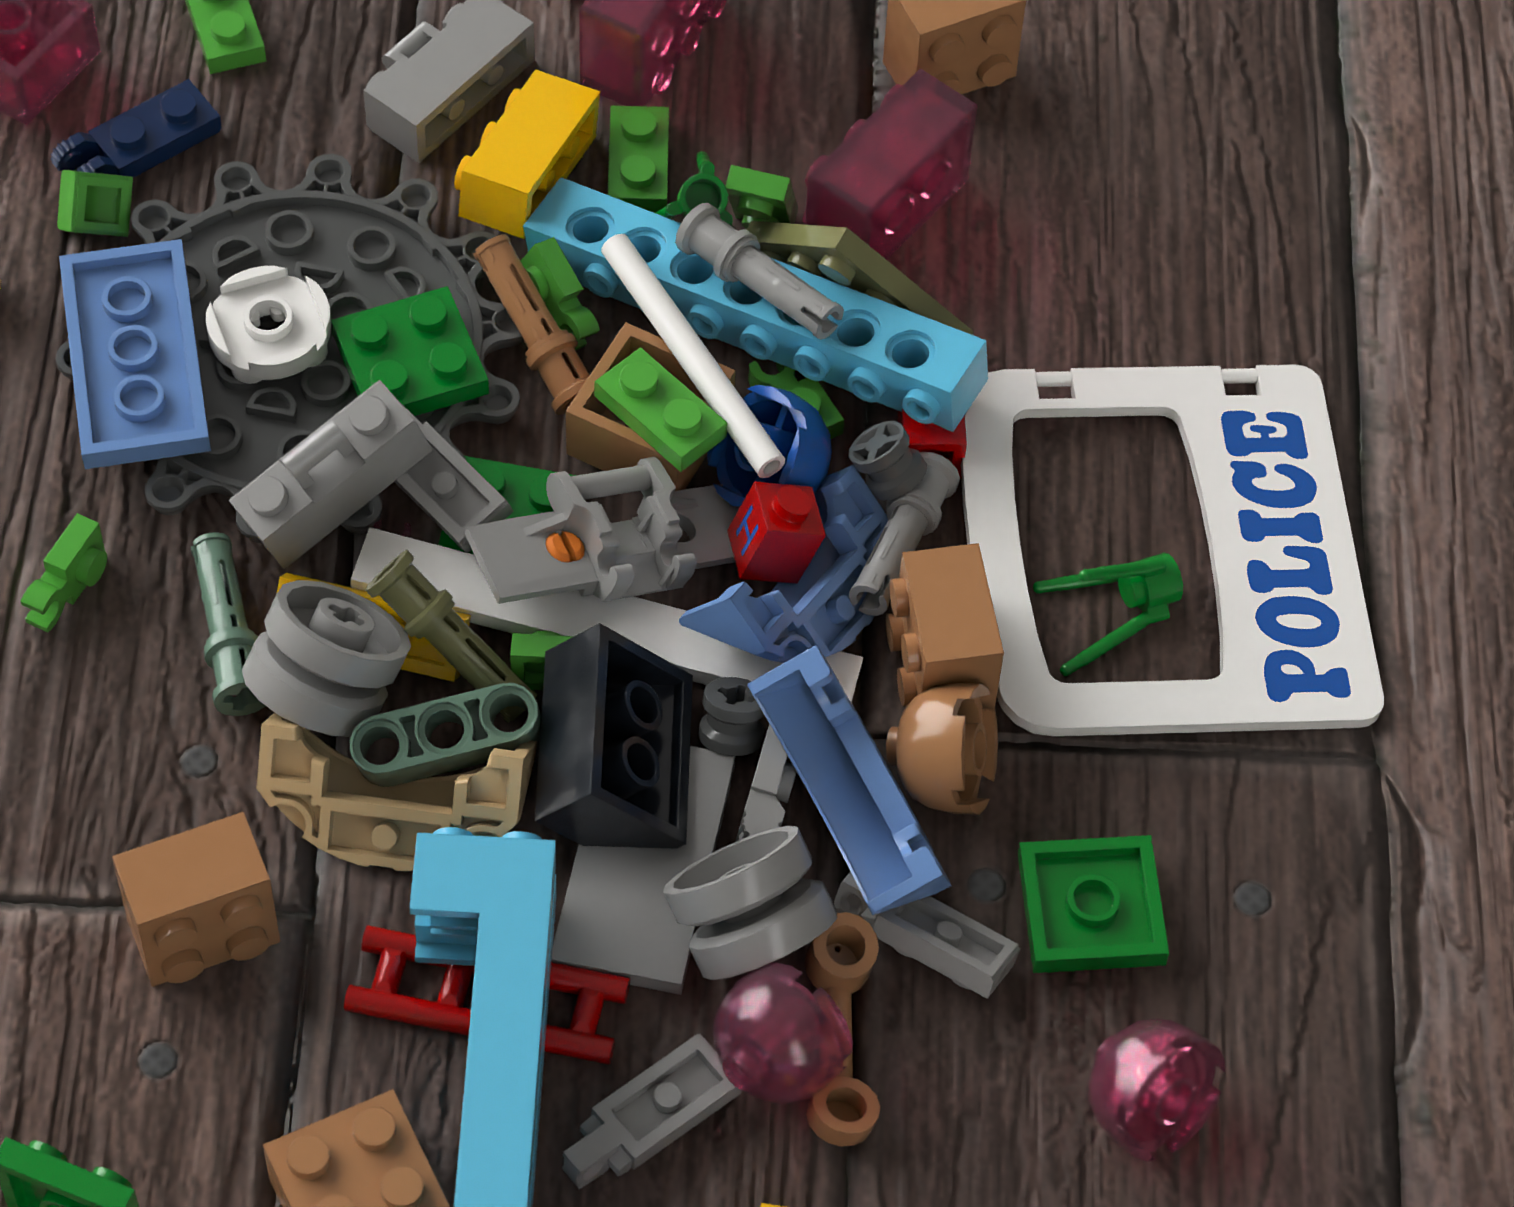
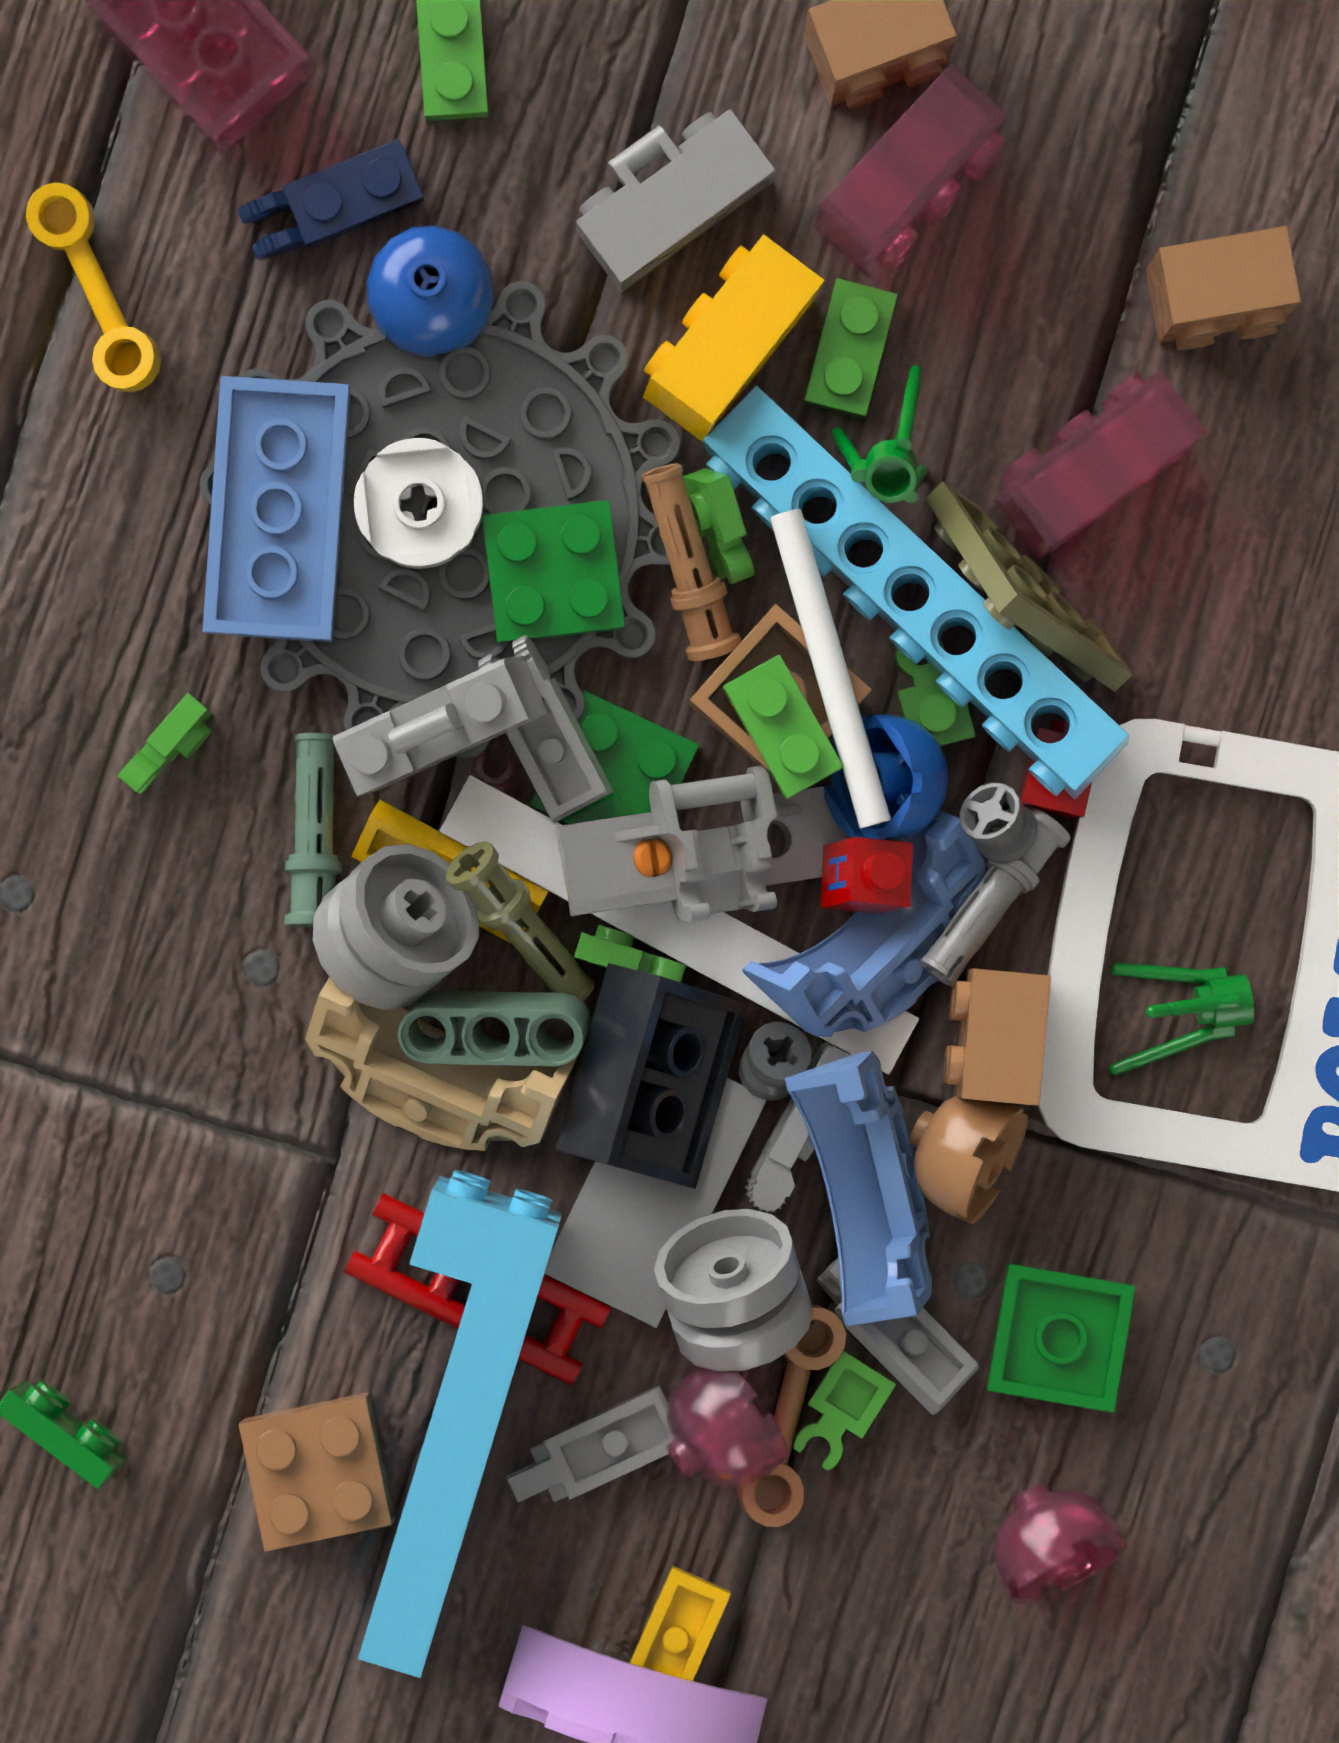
camera: 10 degrees right, 30 degrees up
(94, 203) = (271, 286): bright green slope -> none
(197, 899) = (225, 1156): medium nougat brick -> none
(241, 164) = (436, 318): none -> blue cylinder
(739, 258) = (906, 568): light grey pin -> none
(760, 196) = (957, 464): bright green plate -> none
(894, 1011) = (849, 1400): none -> bright green plate

